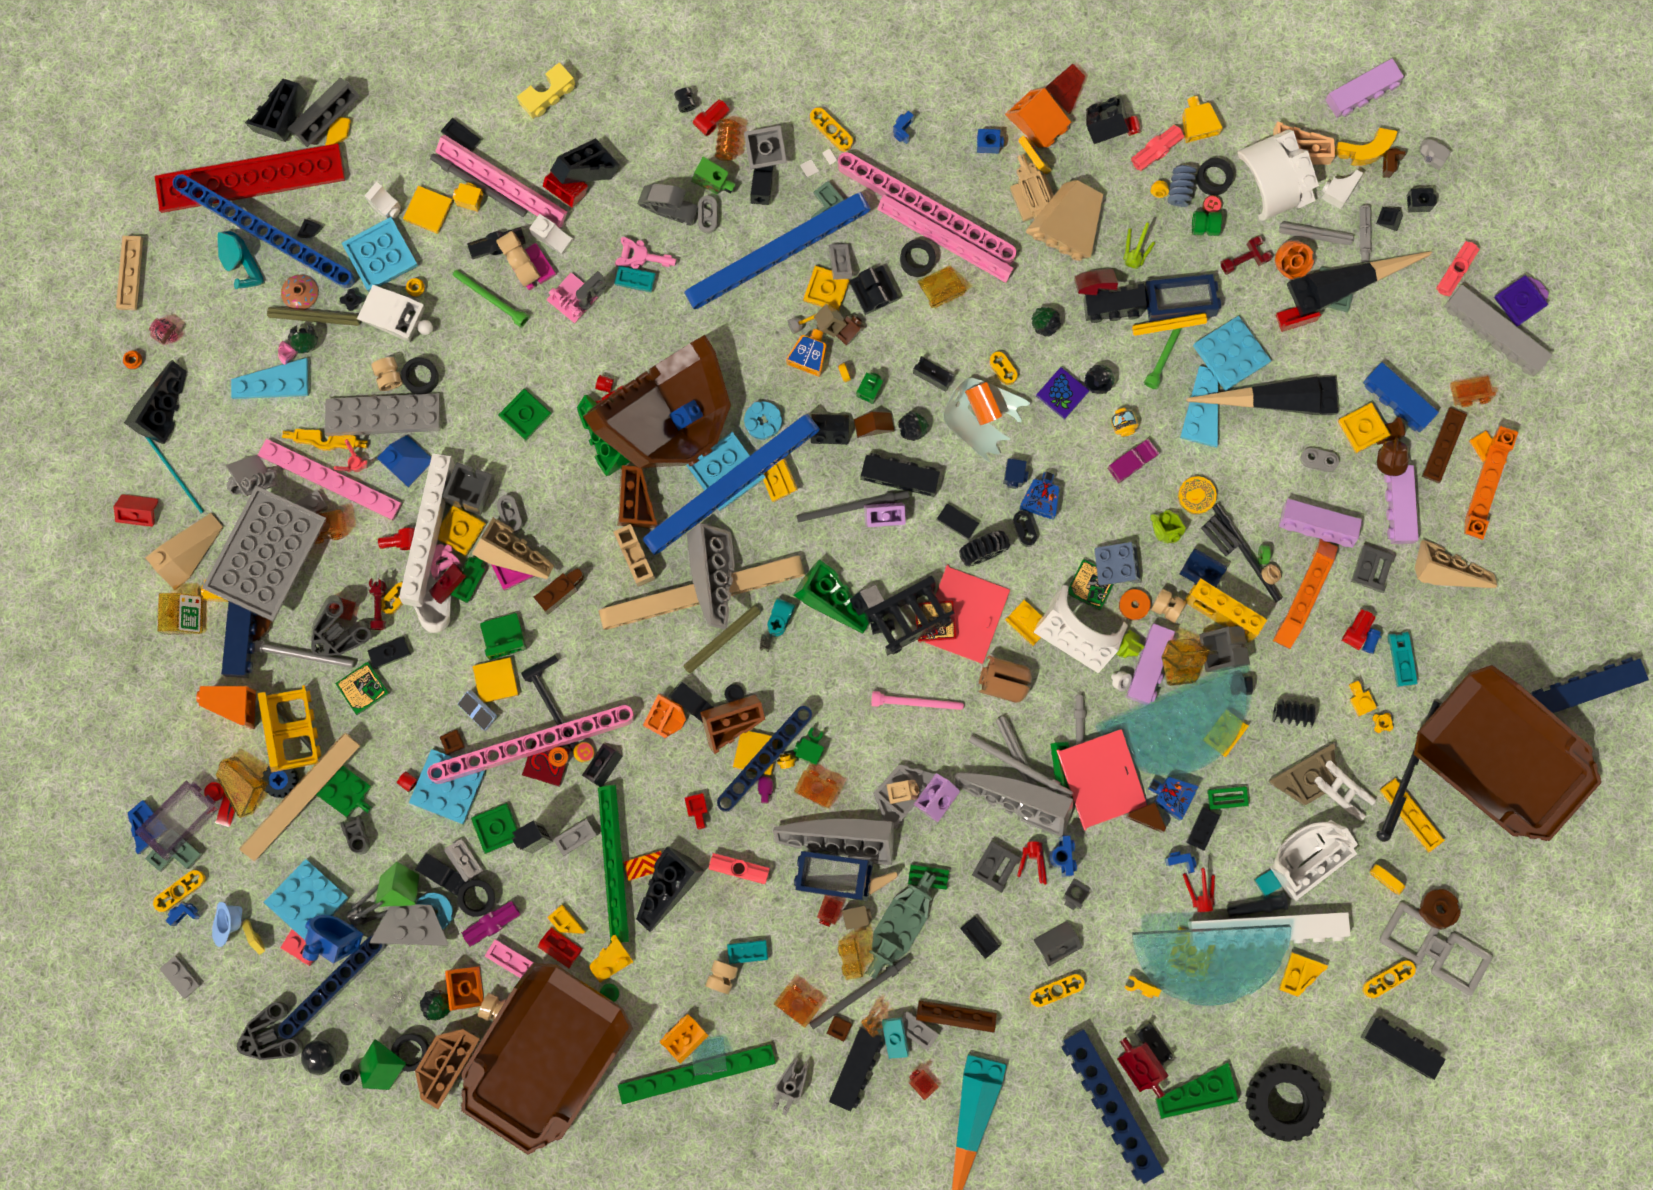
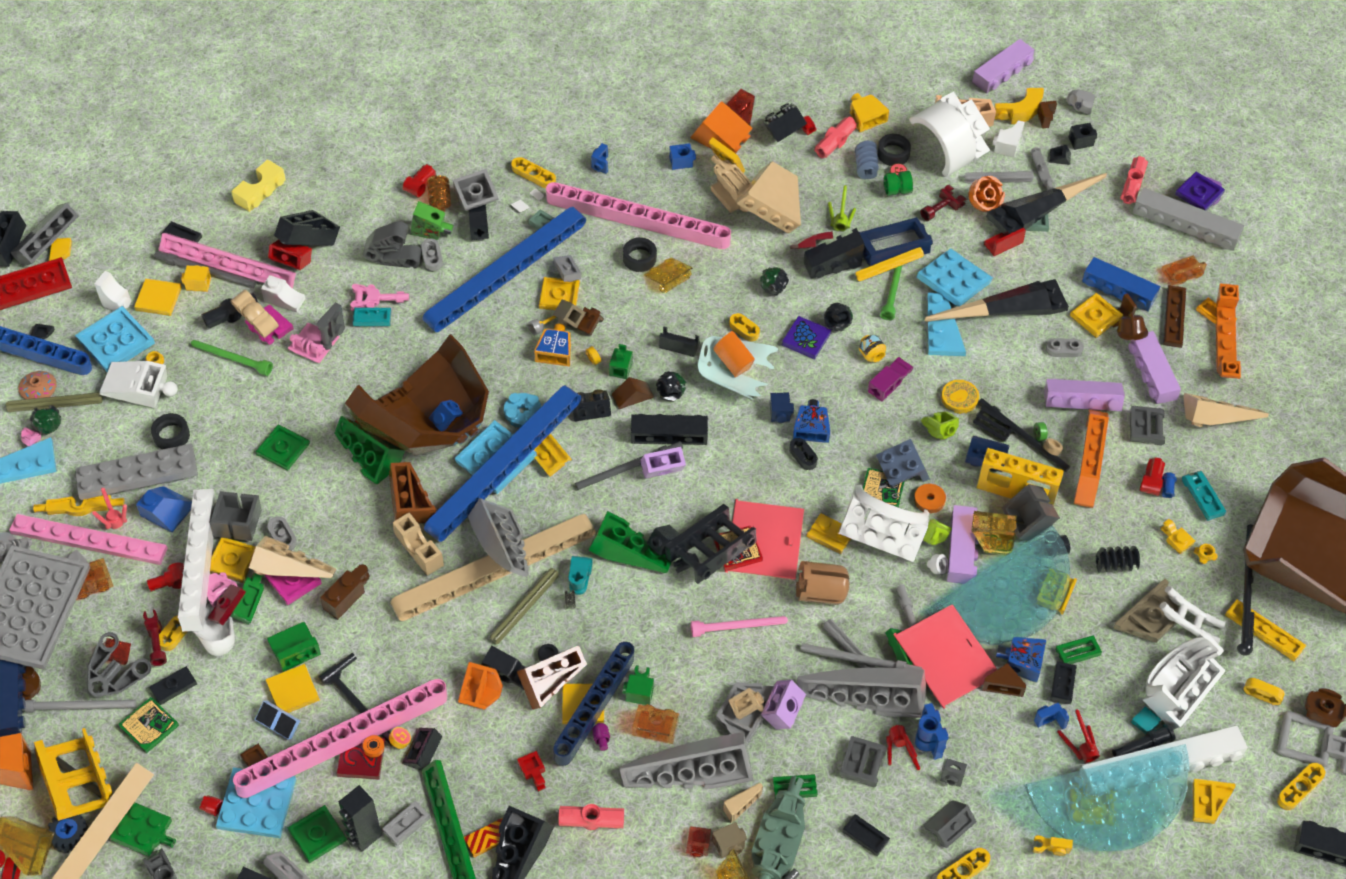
camera: 15 degrees left, 25 degrees down
(351, 305) = (94, 384): black plate -> none
(386, 372) = (136, 434): tan wheel -> none
(685, 99) = (392, 171): black wheel -> none
(786, 761) = (617, 703): yellow plate -> none
(833, 875) = (695, 799): window -> none
(873, 289) = (604, 285): black plate -> none
(945, 238) = (662, 234): bright pink plate -> none
(957, 521) = (735, 459): black tile -> none
(984, 548) = (769, 471): black gear -> none
(1159, 189) = (847, 162): yellow plate -> none
(1161, 605) = (963, 489): tan wheel -> none

